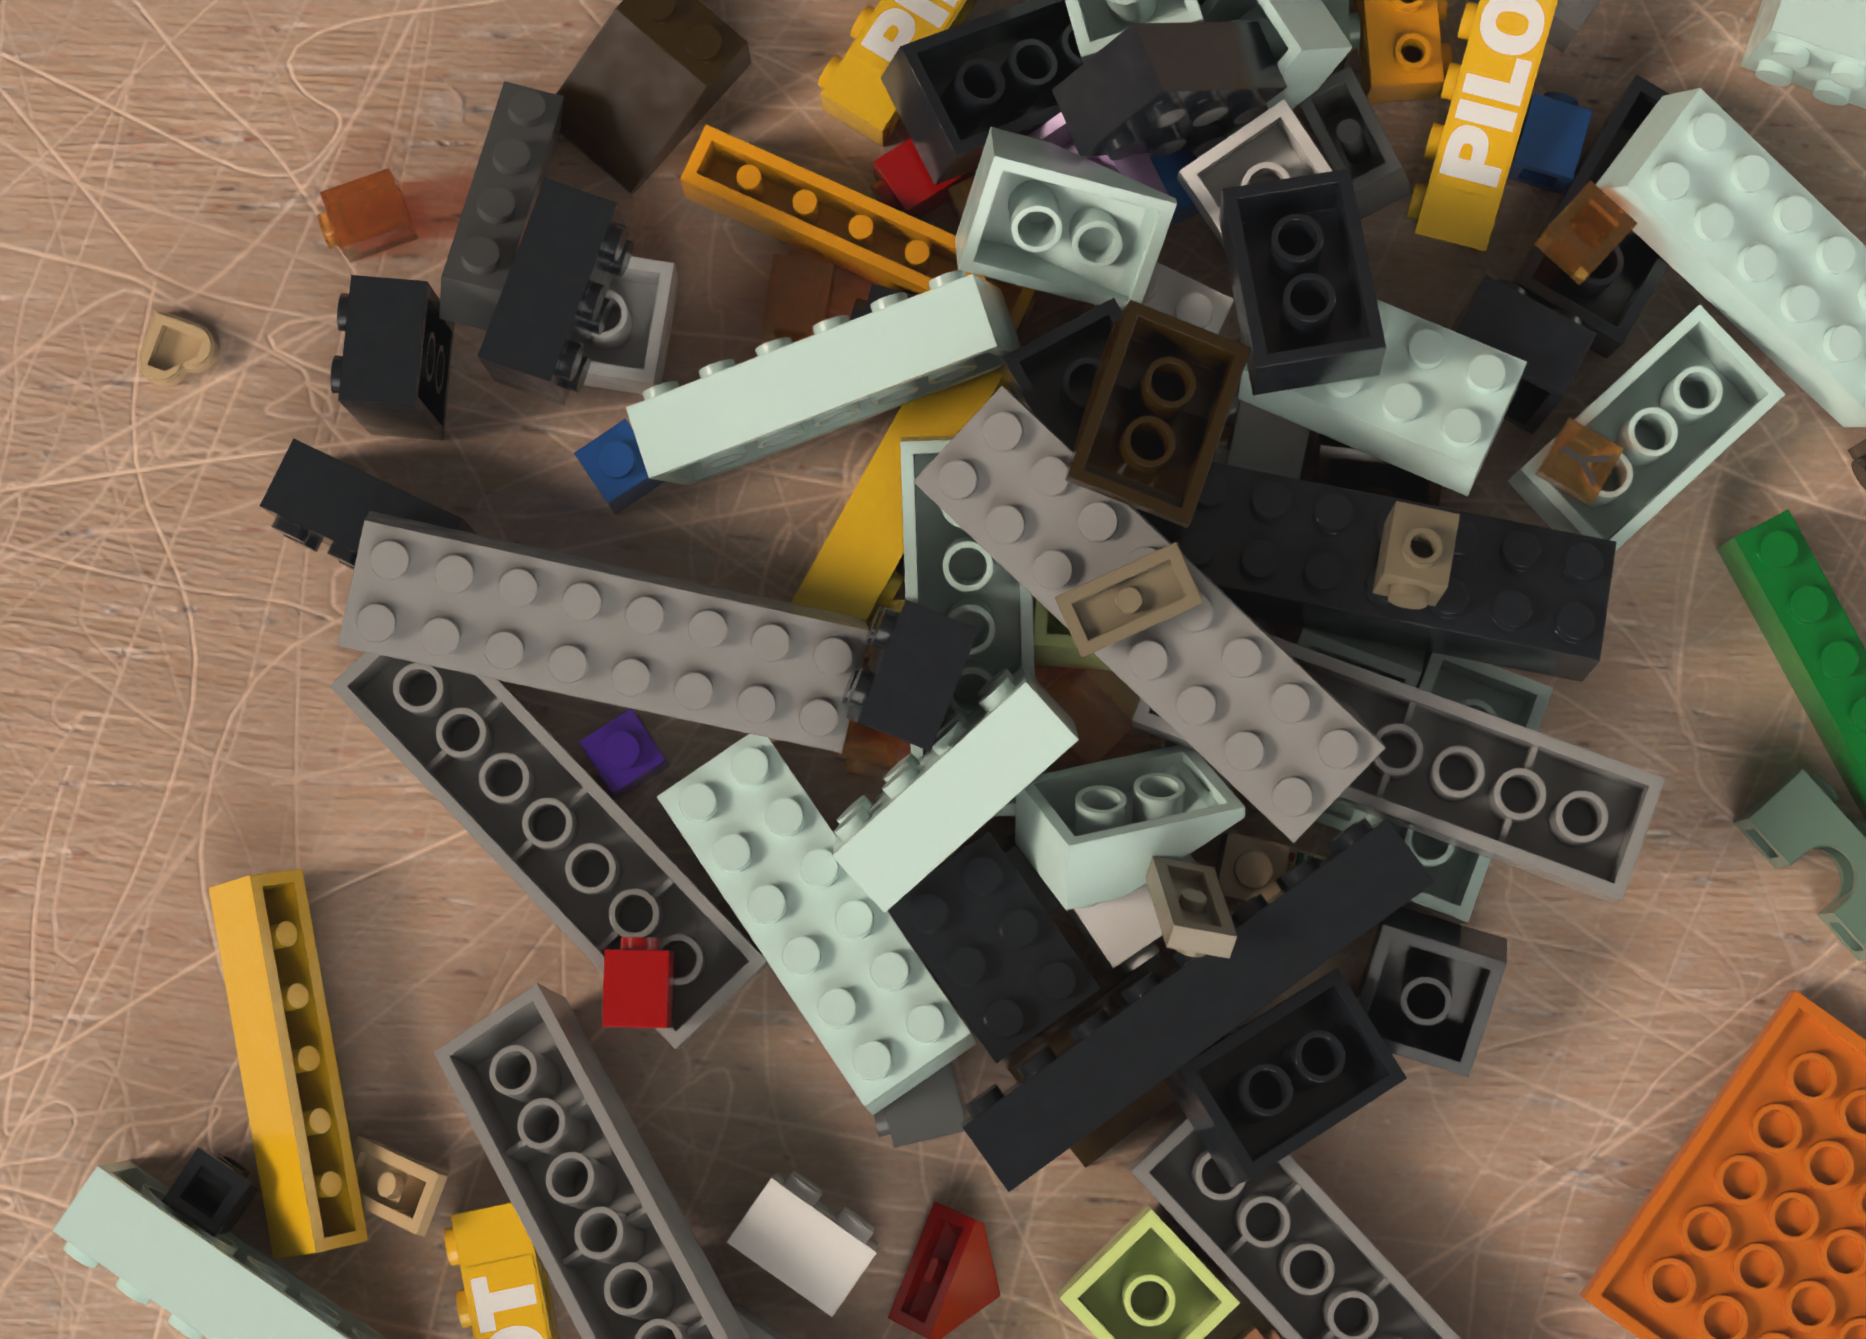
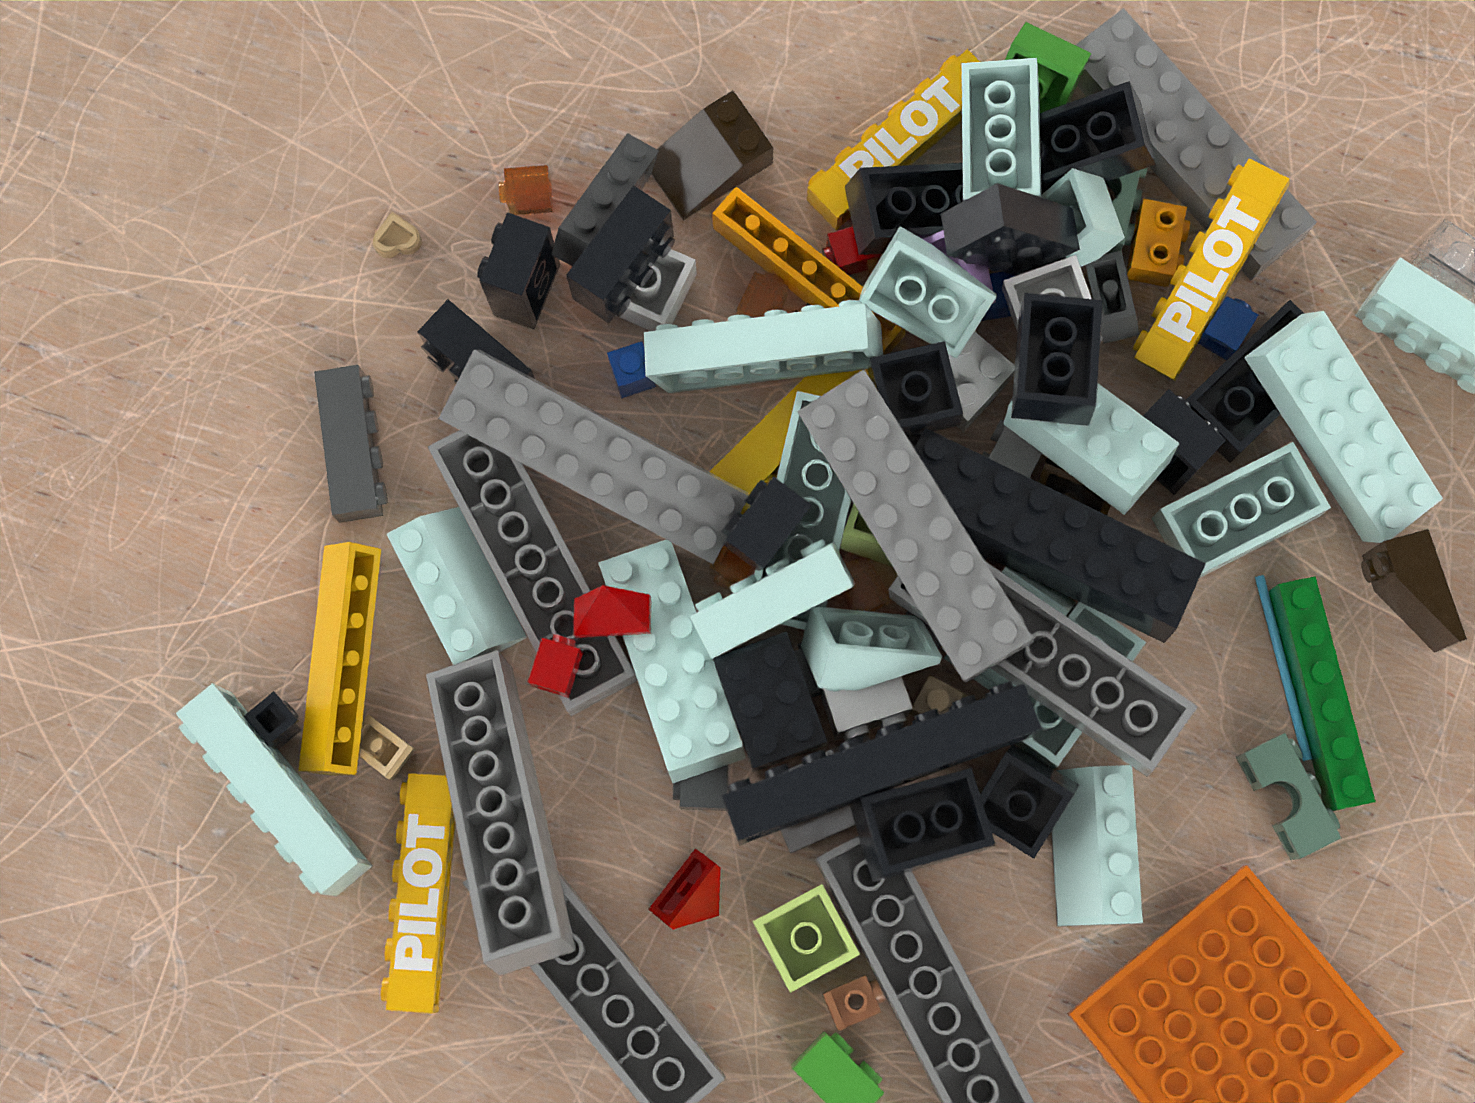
camera: 20 degrees right, 5 degrees down
(200, 710) = (349, 443): none -> dark grey brick
(438, 894) = (456, 585): none -> light aqua slope
(624, 753) = (587, 534): dark purple brick -> none
(703, 877) = (612, 613): none -> red slope
(806, 1241) = (610, 846): white brick -> none
(1129, 599) = (904, 510): dark tan plate -> none
(1156, 412) = (950, 408): dark brown slope -> none
(1190, 908) = (892, 704): dark tan plate -> none
(1415, 555) = (1082, 535): dark tan brick -> none
(1563, 1033) = (1097, 850): none -> light aqua slope
(1579, 461) = (1196, 513): clear orange tile -> none
(1585, 233) = (1234, 379): clear orange brick -> none
(1771, 661) = (1283, 667): none -> medium azure axle

